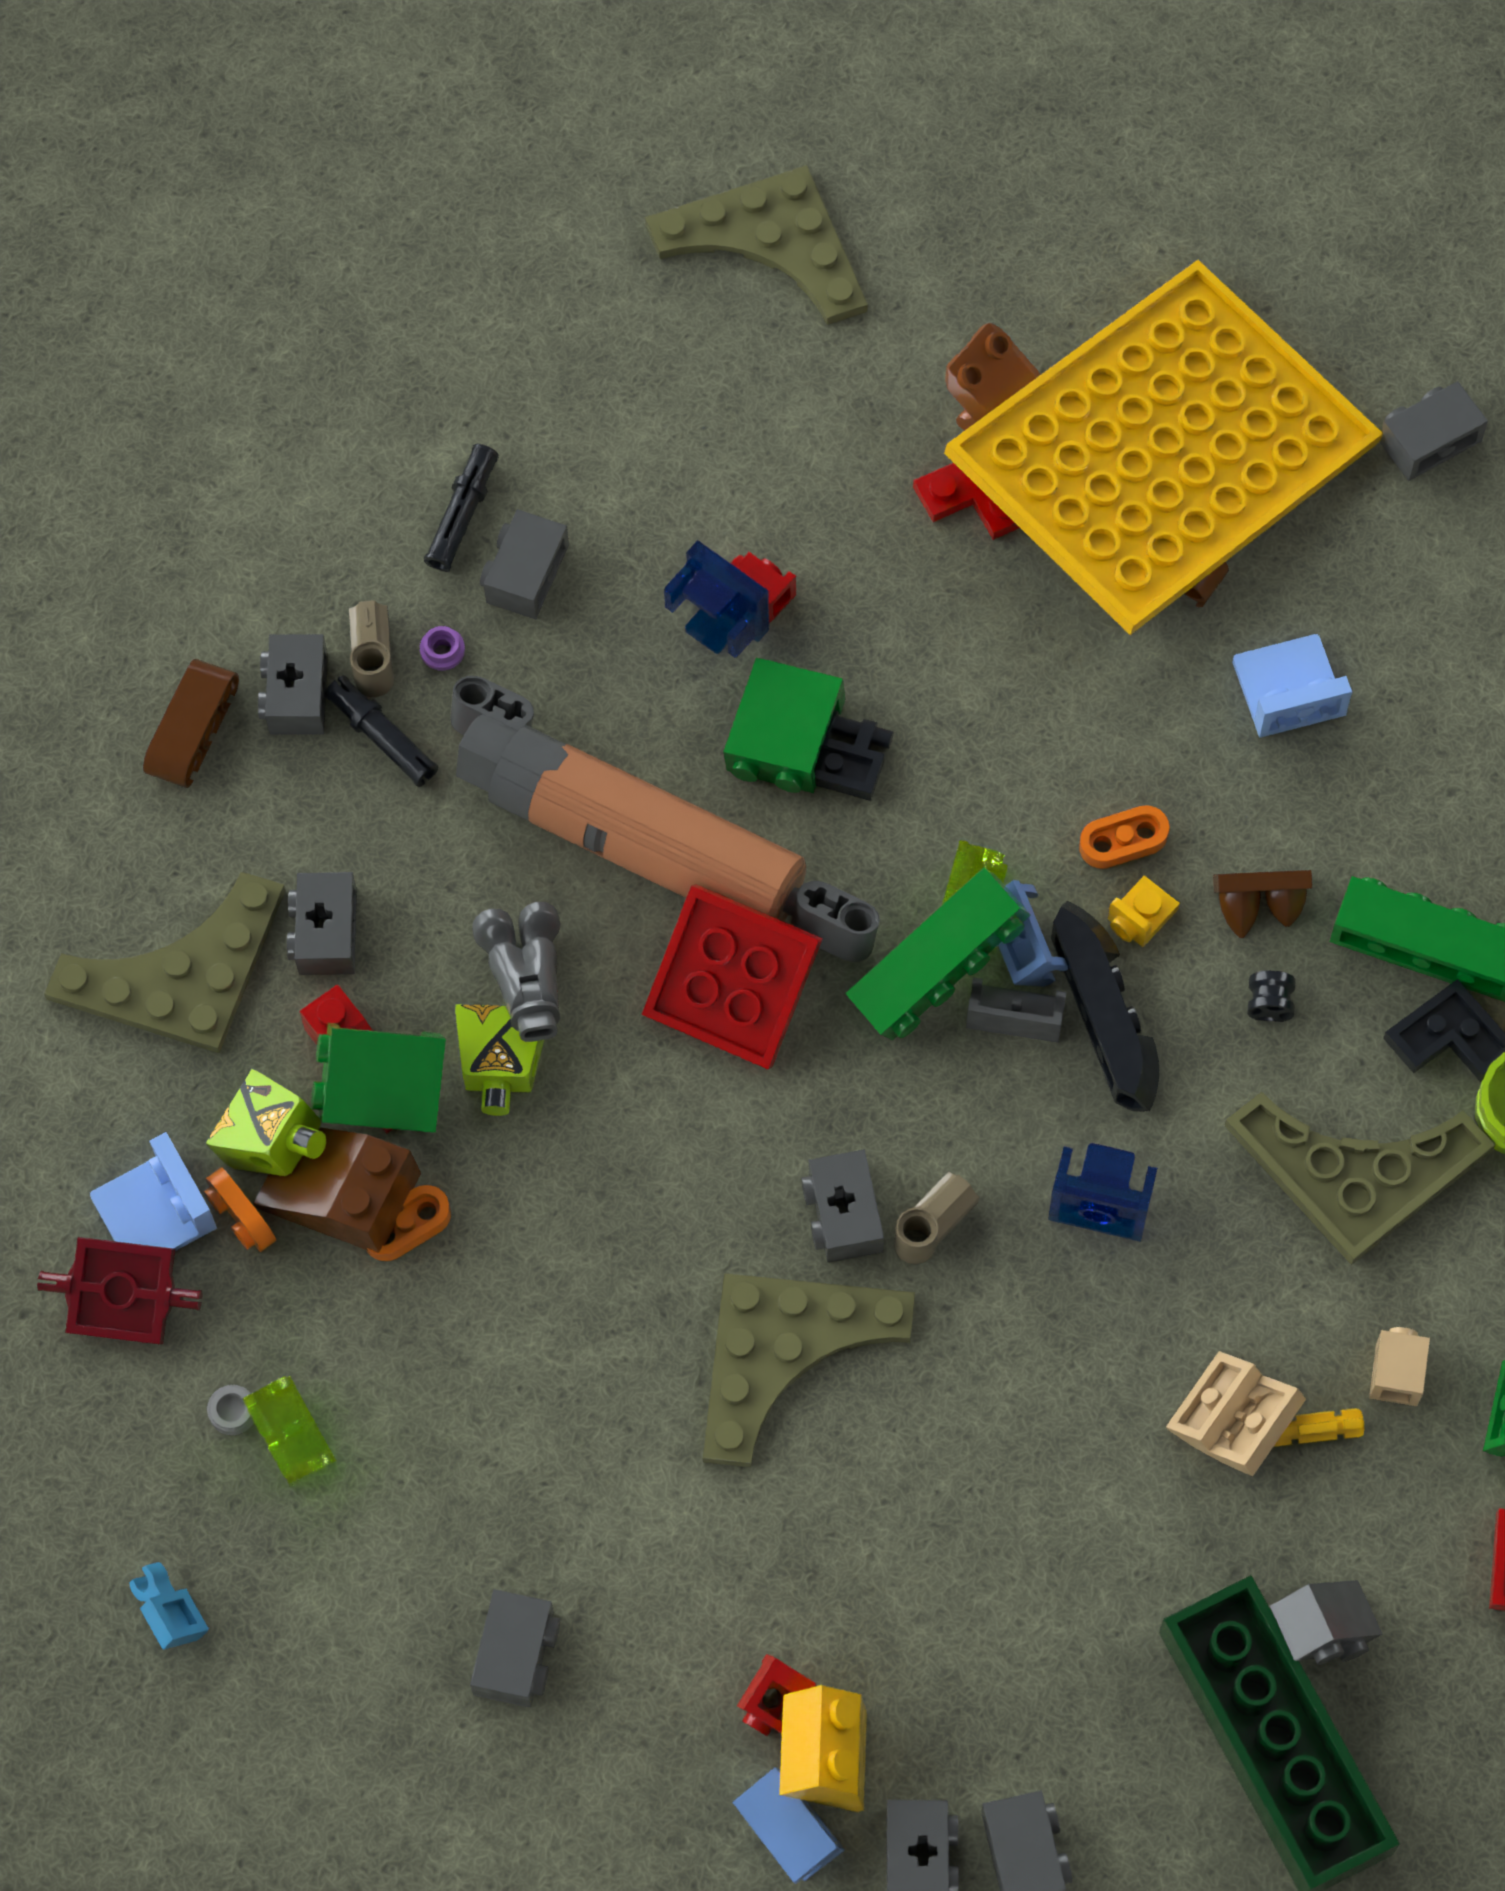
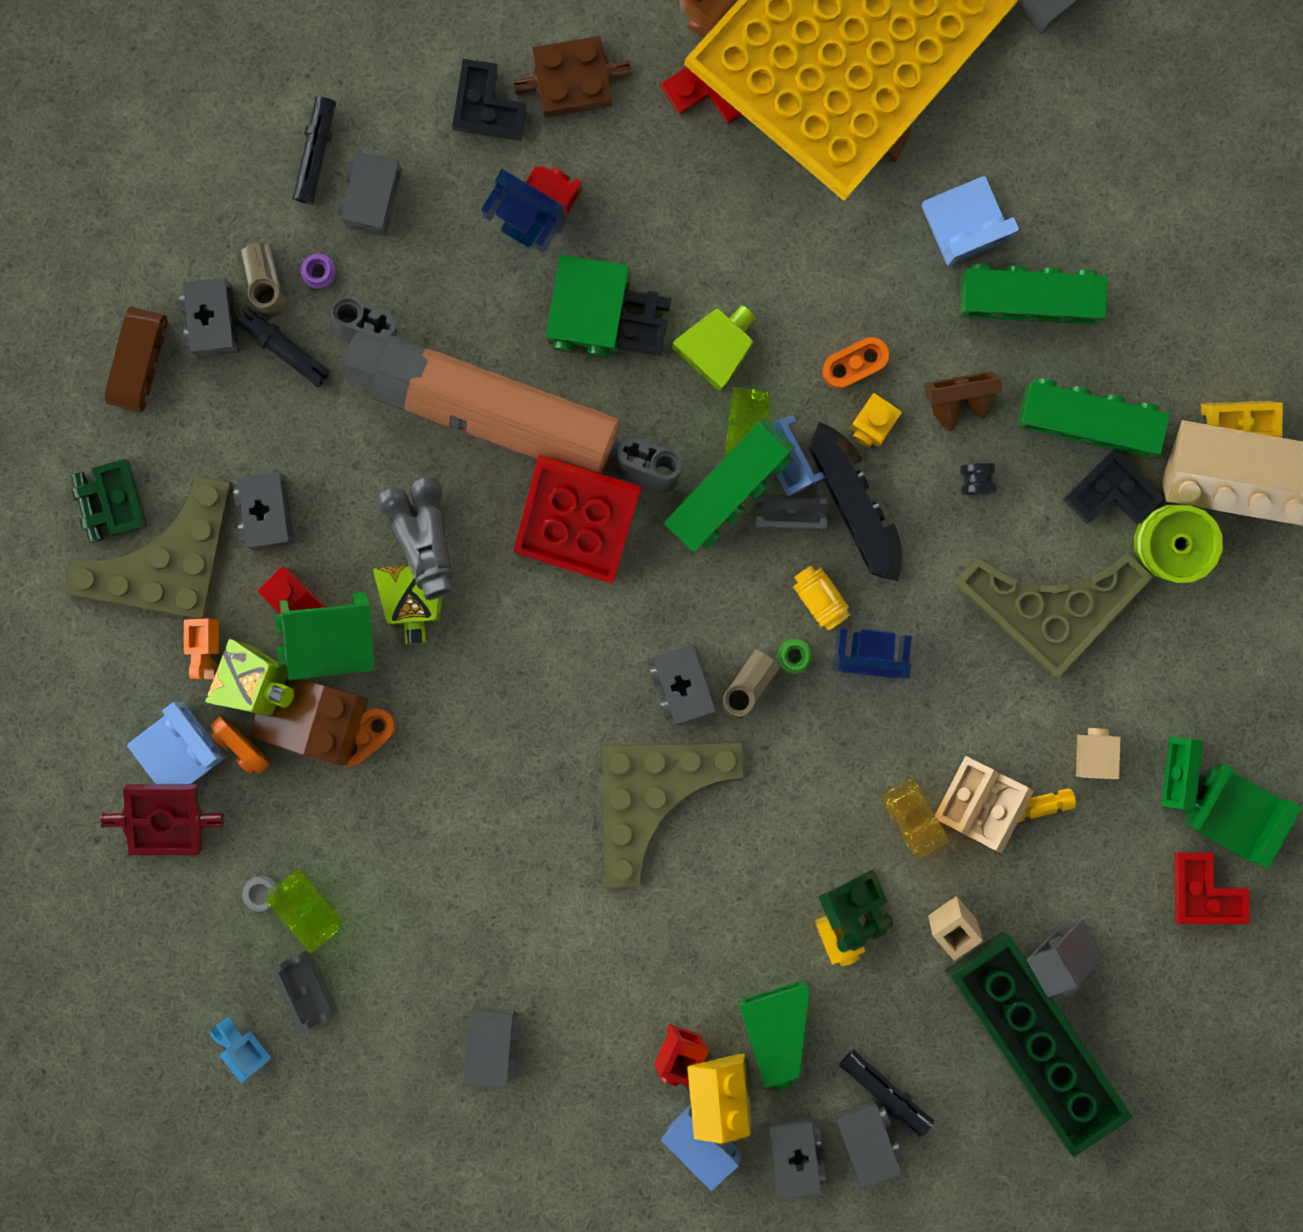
camera: 10 degrees left, 20 degrees up
(136, 886) = (118, 498): none -> dark green plate
(210, 1074) = (201, 641): none -> orange plate
(271, 1540) = (304, 990): none -> dark grey hinge
(677, 484) = (477, 108): none -> black plate
(802, 461) = (572, 76): none -> reddish brown plate
(913, 1678) = (776, 1031): none -> green slope
(944, 793) = (717, 345): none -> lime torso
(1002, 1178) = (802, 647): none -> bright green plate
(1006, 1561) = (830, 939): none -> yellow bracket
(1043, 1511) = (852, 900): none -> dark green plate
(1044, 1118) = (821, 597): none -> yellow head
(1068, 1797) = (898, 1103): none -> black pin
(1136, 1412) = (914, 818): none -> clear yellow brick
(1178, 1565) = (955, 928): none -> tan brick
(1365, 779) = (1033, 295): none -> green brick

